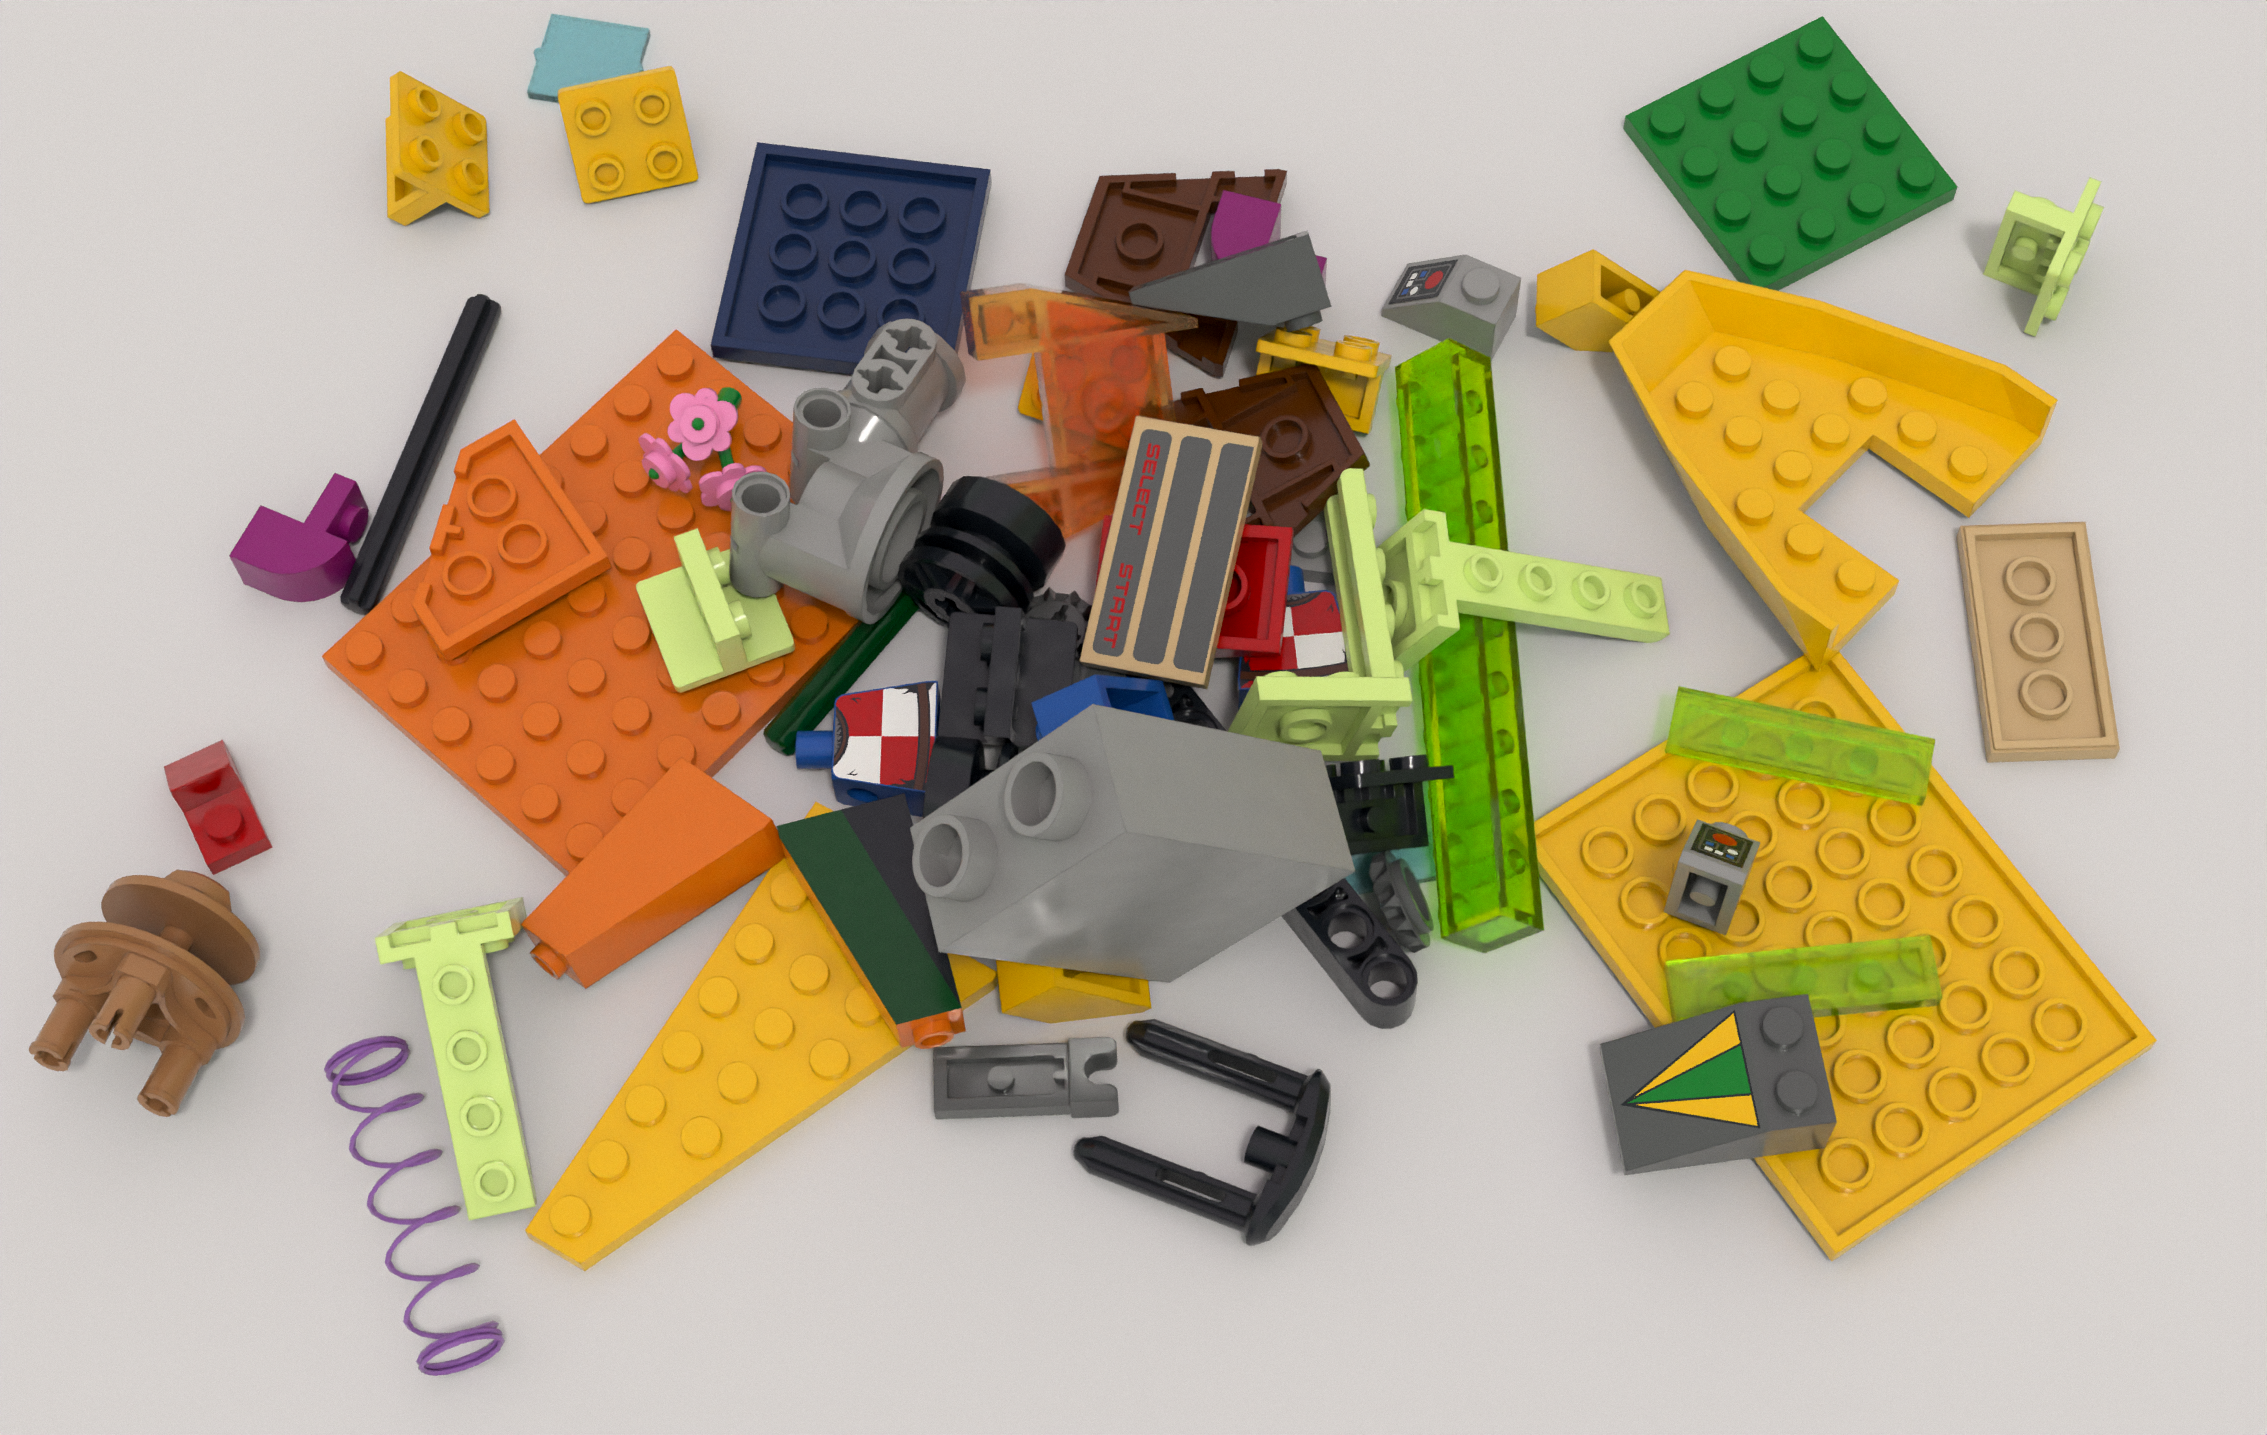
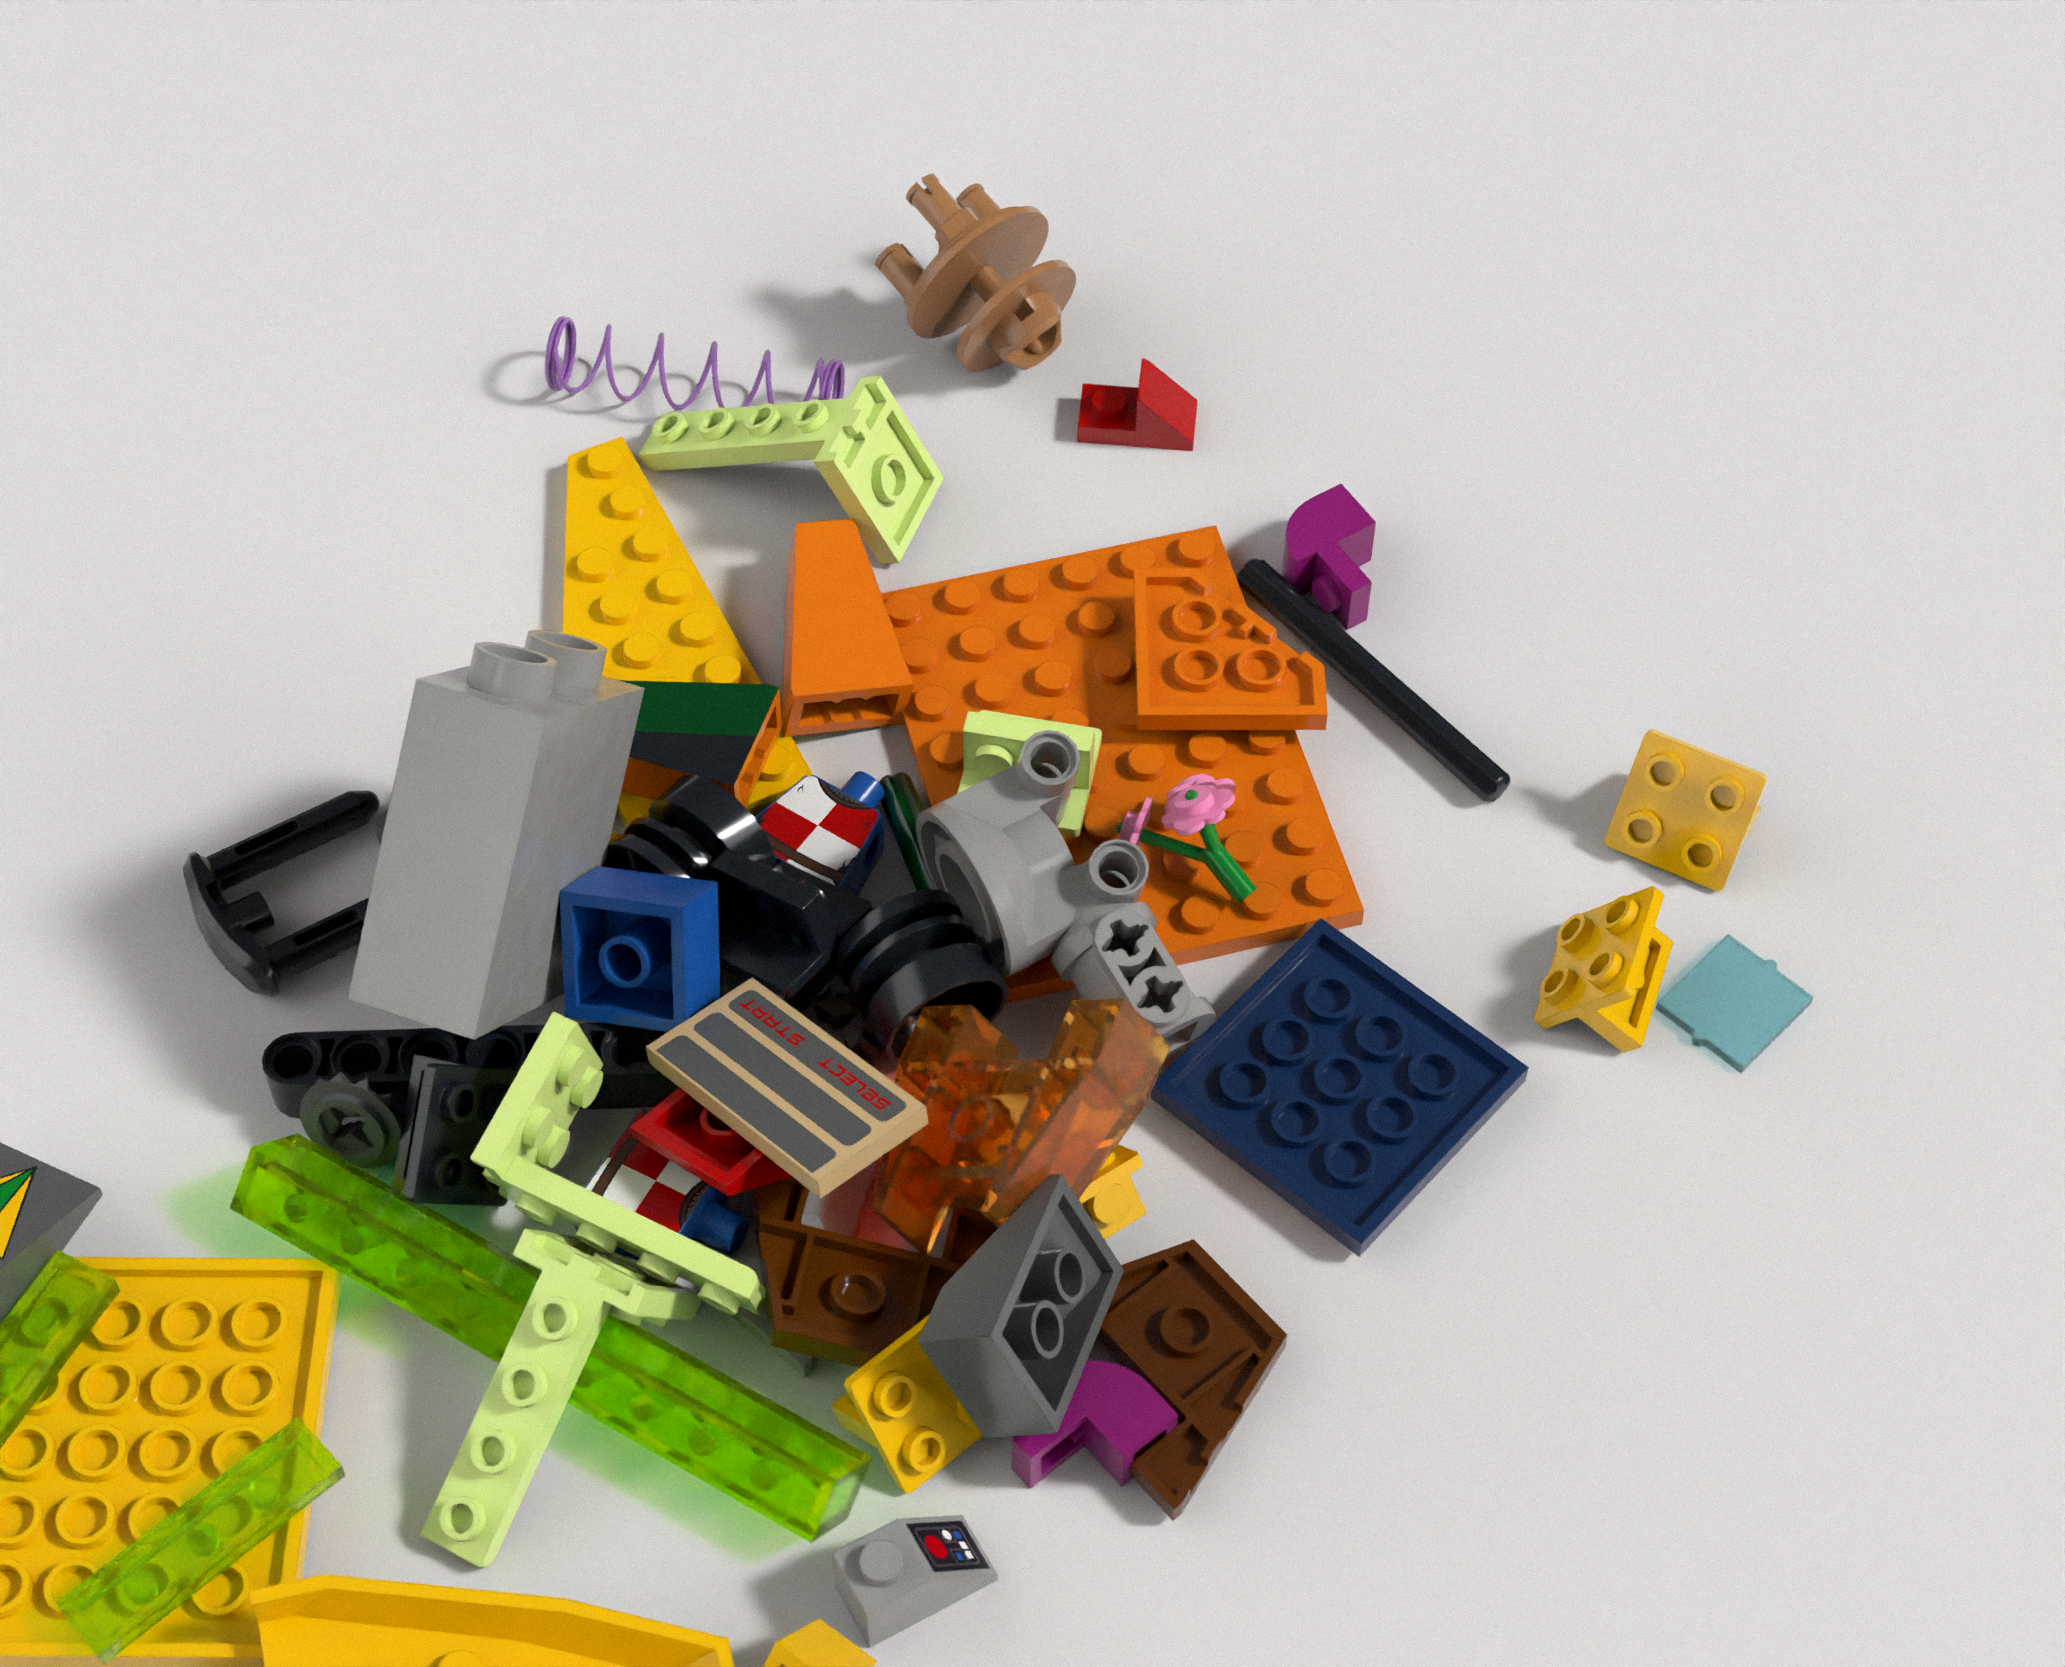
camera: 120 degrees right, 10 degrees down
(1711, 875) = (138, 1343): light grey slope -> none

